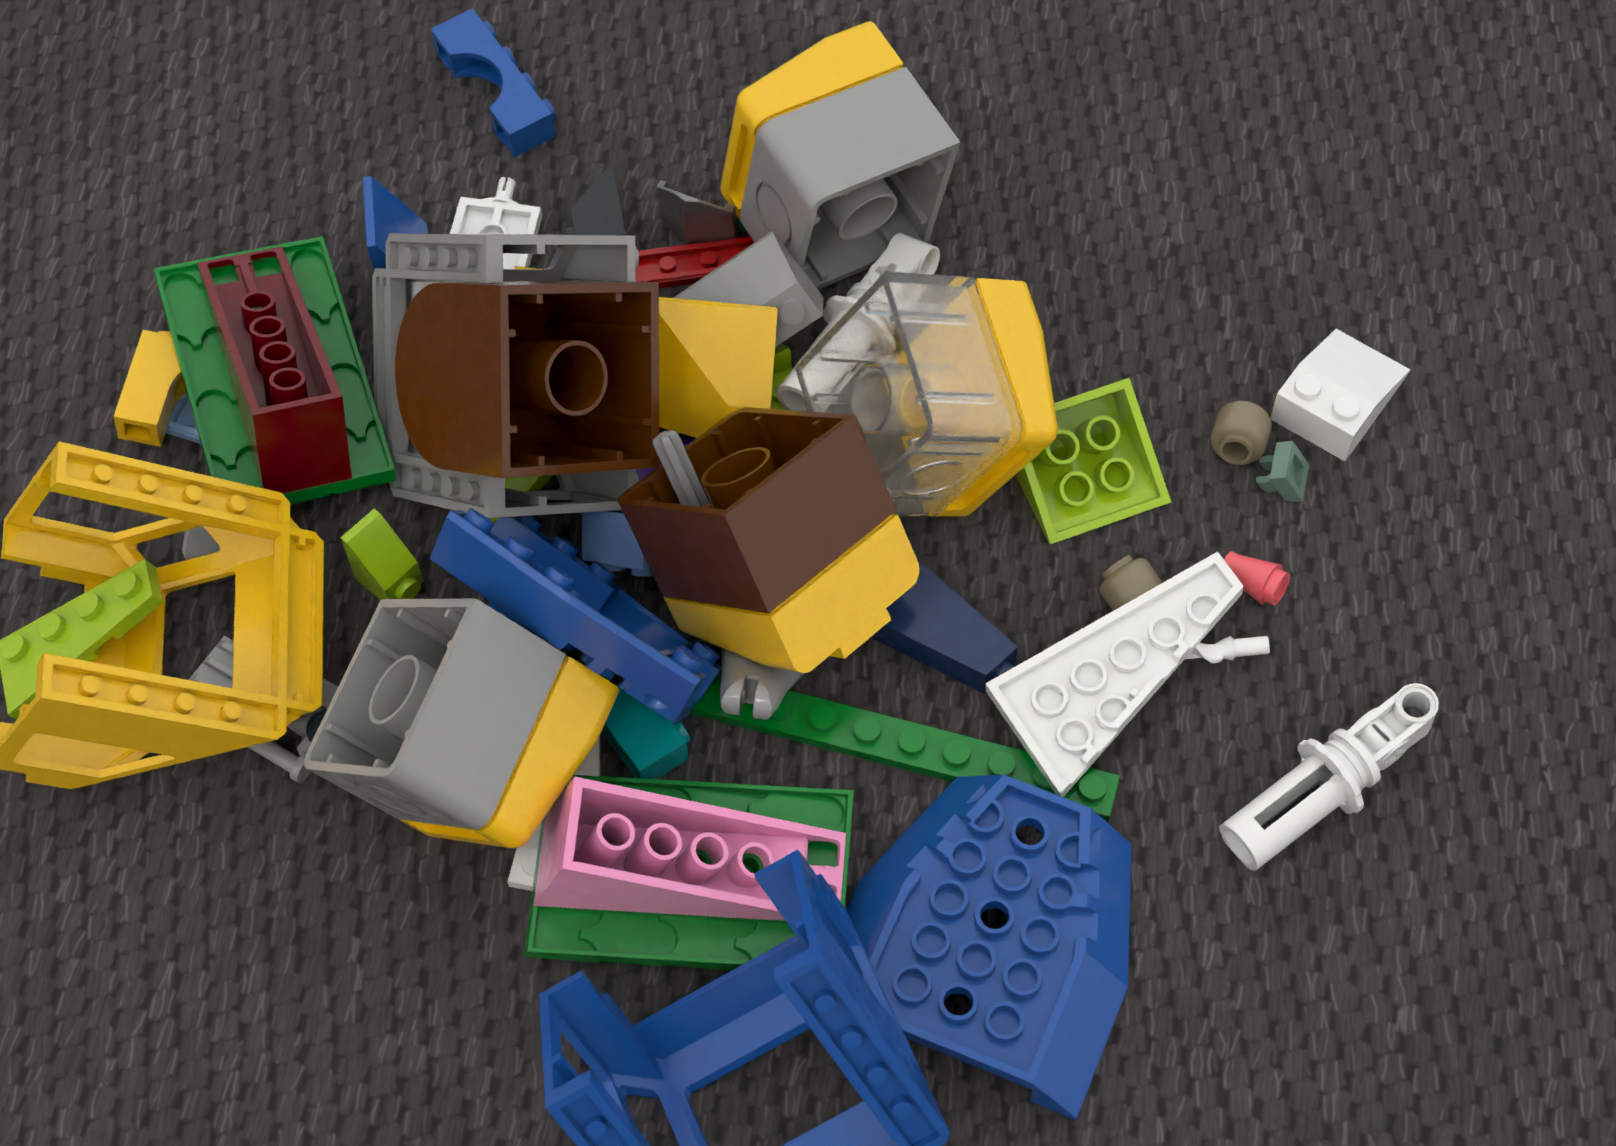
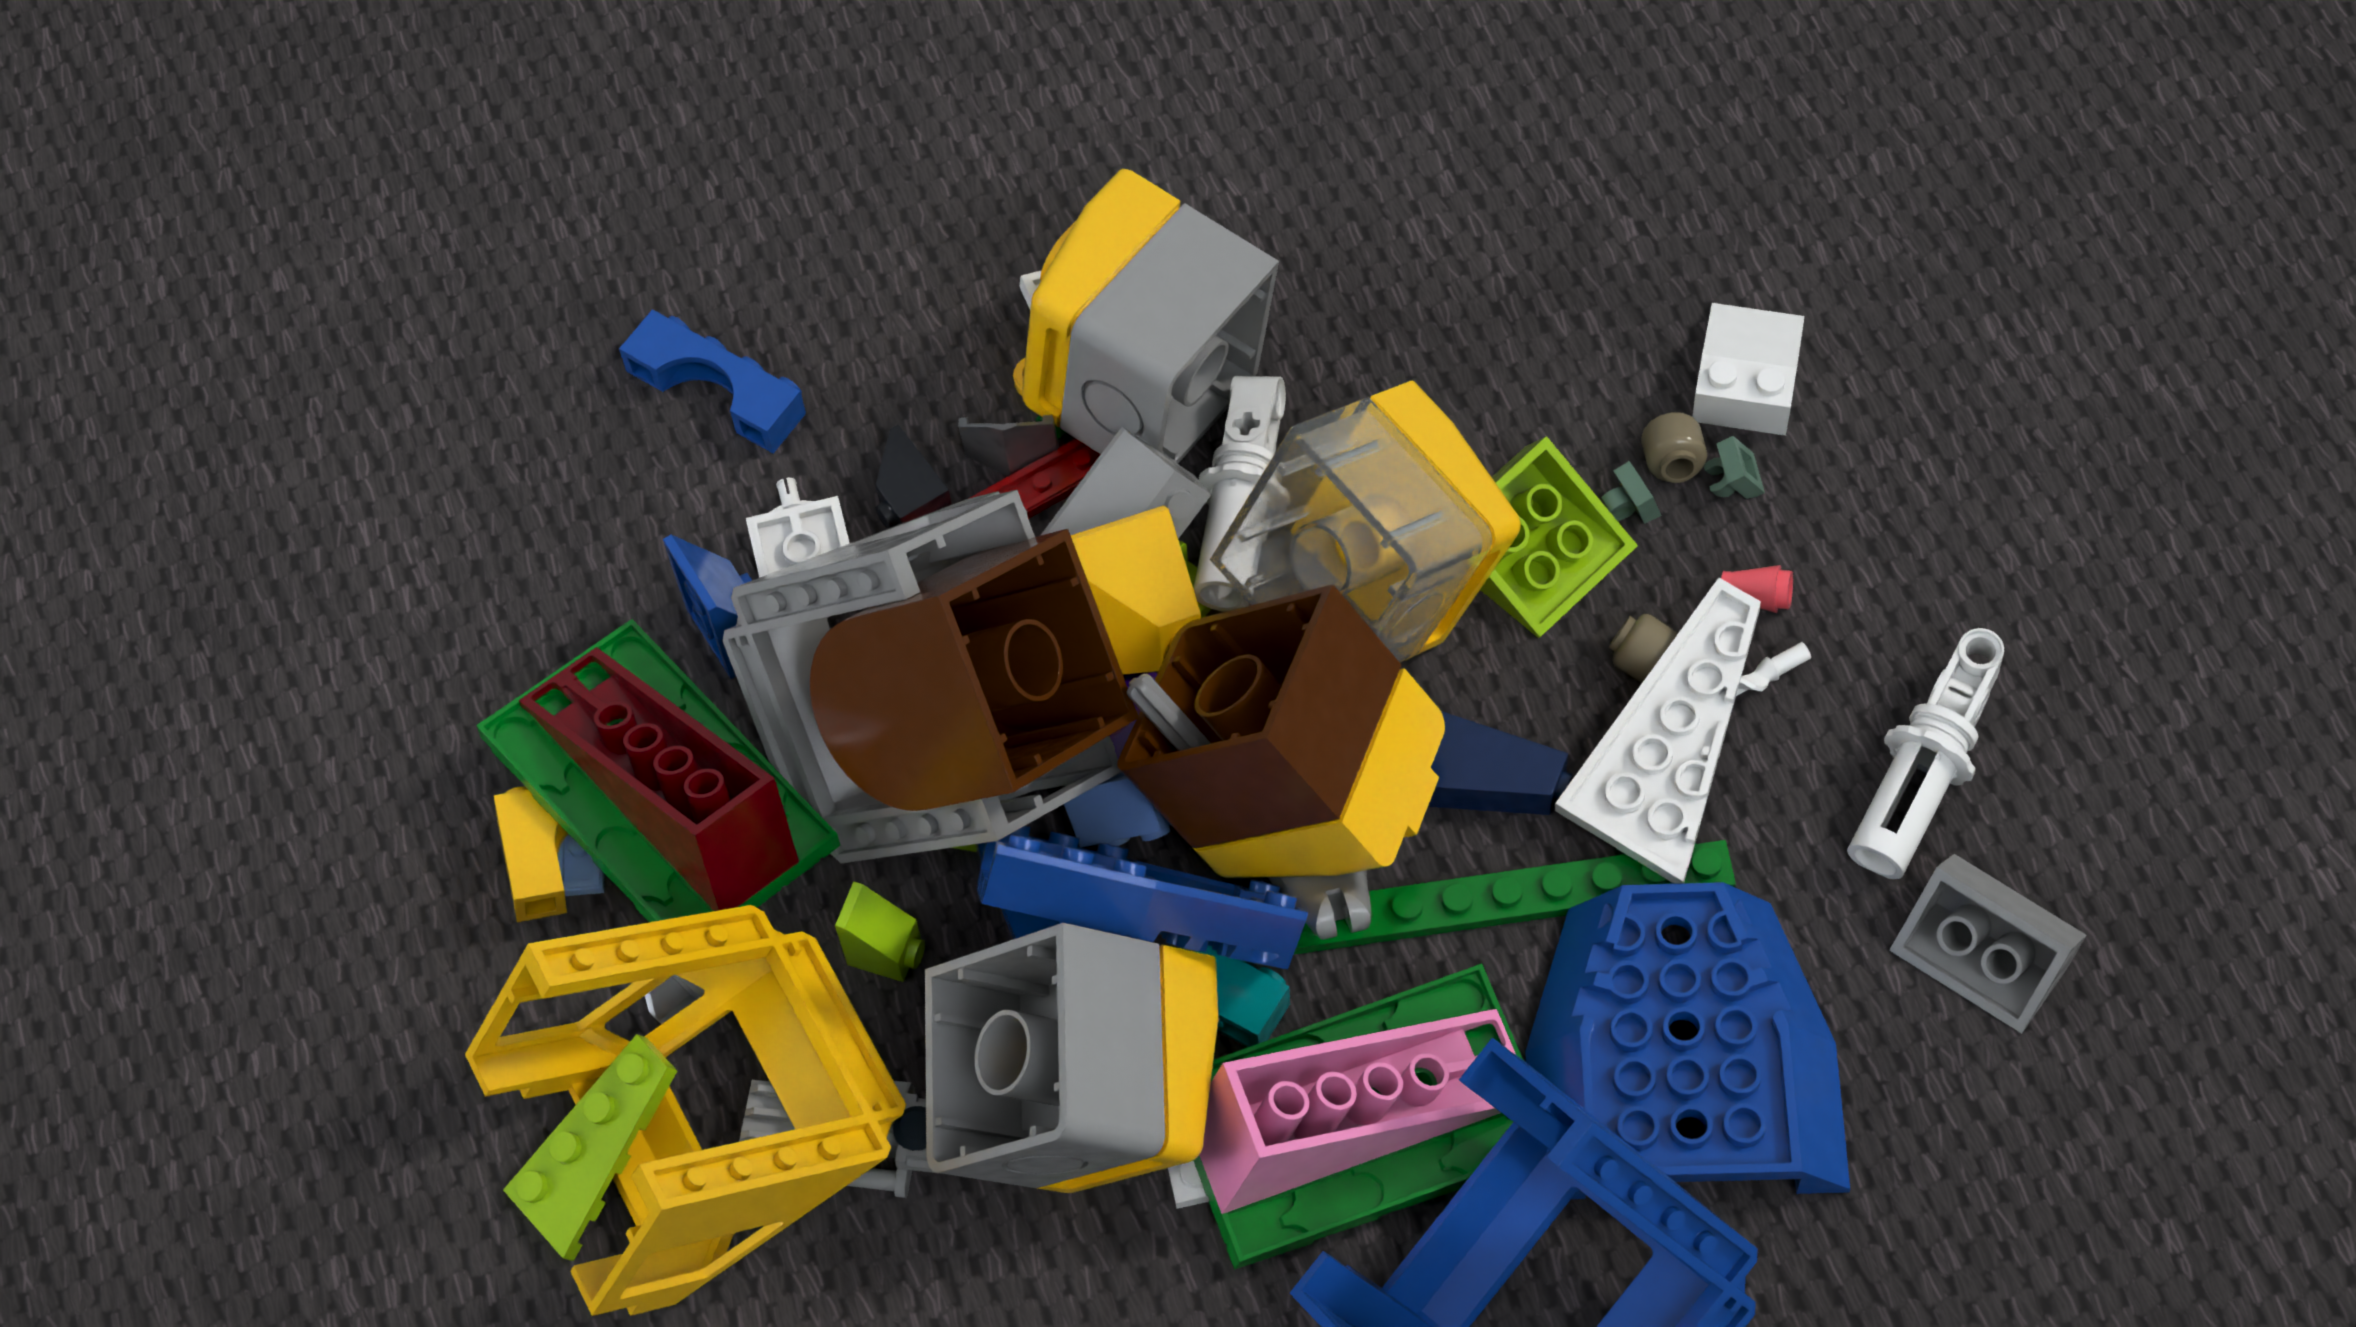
camera: 20 degrees left, 0 degrees up
(1183, 459) = (1630, 496): none -> sand green tile
(1303, 957) = (1987, 942): none -> light grey slope

